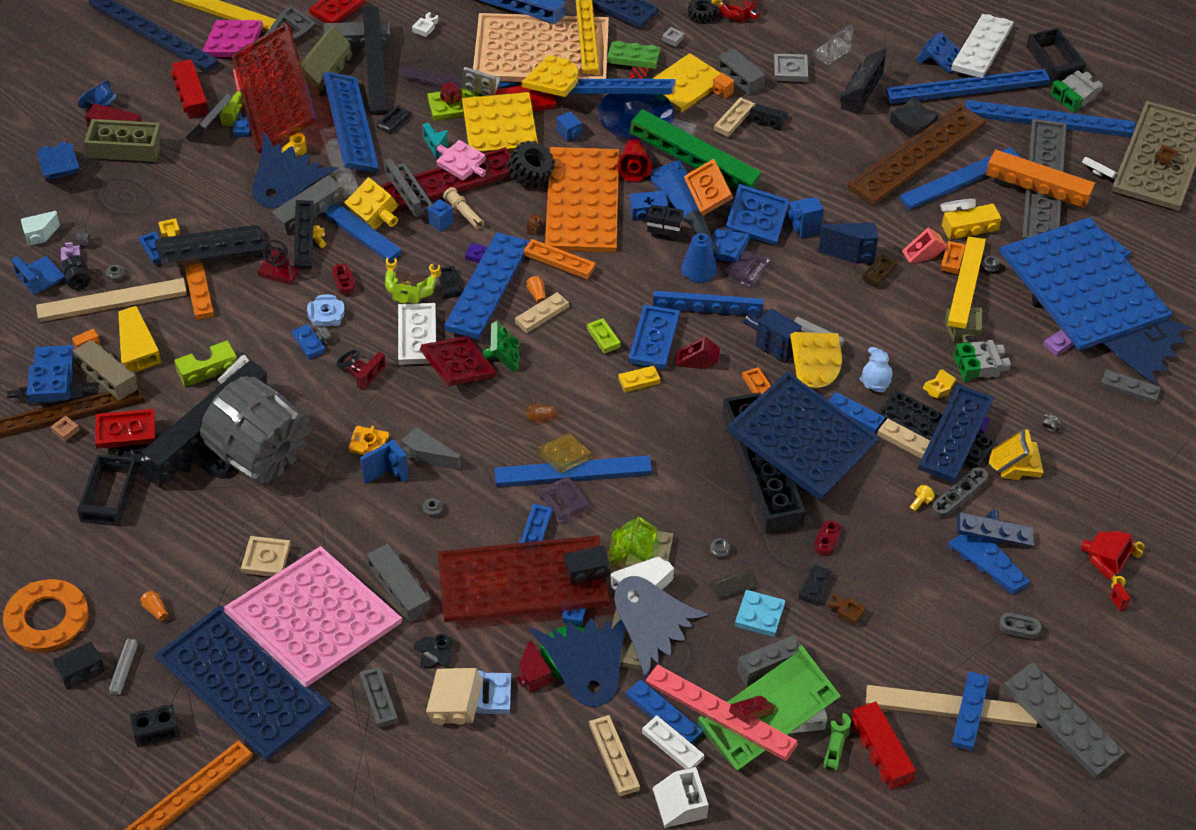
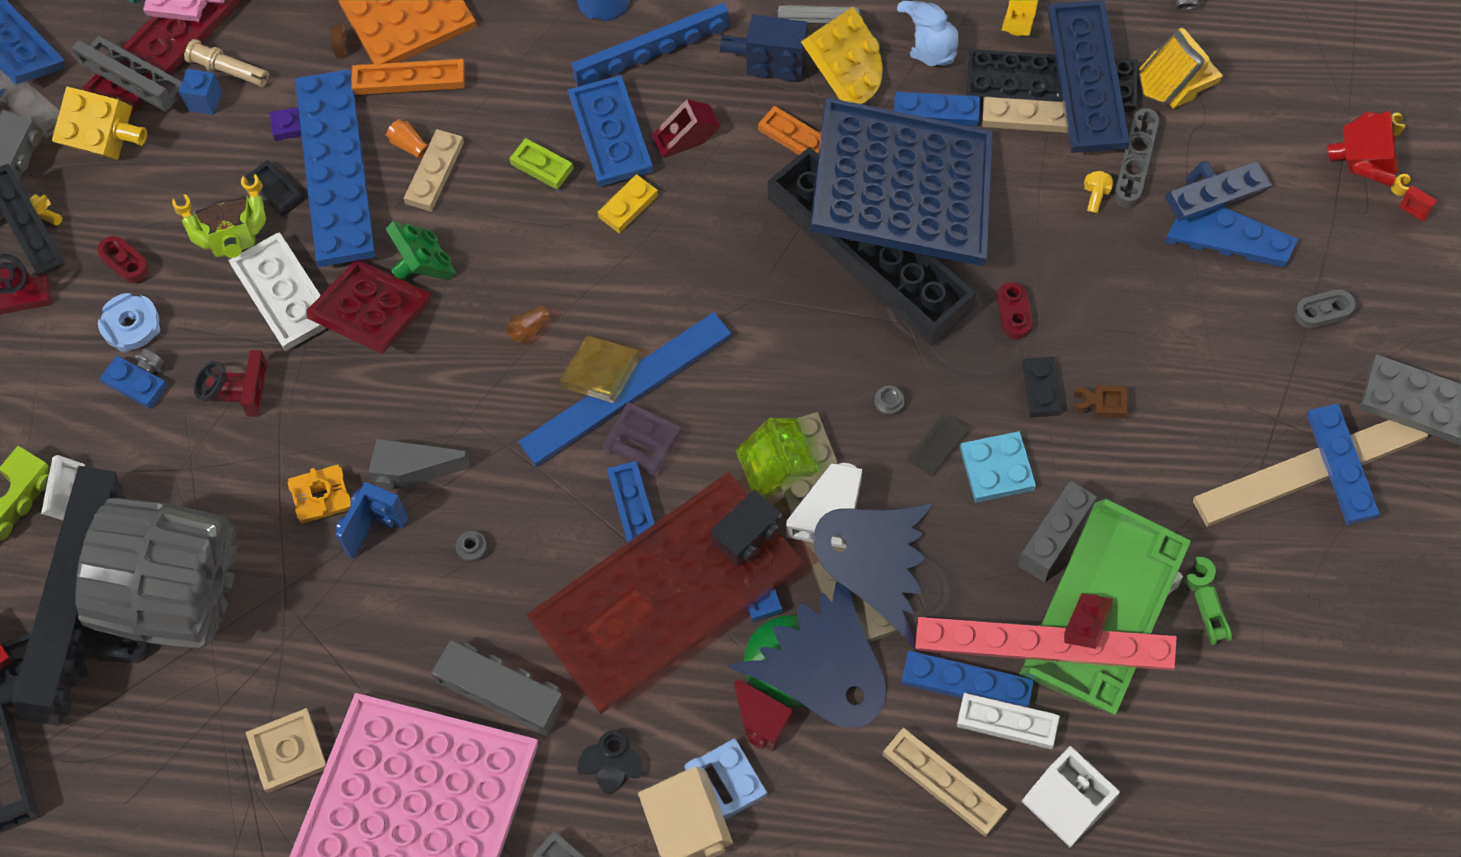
camera: 25 degrees left, 15 degrees up
(362, 232) = (103, 171): blue tile -> none
(883, 745) = (1267, 573): red brick -> none

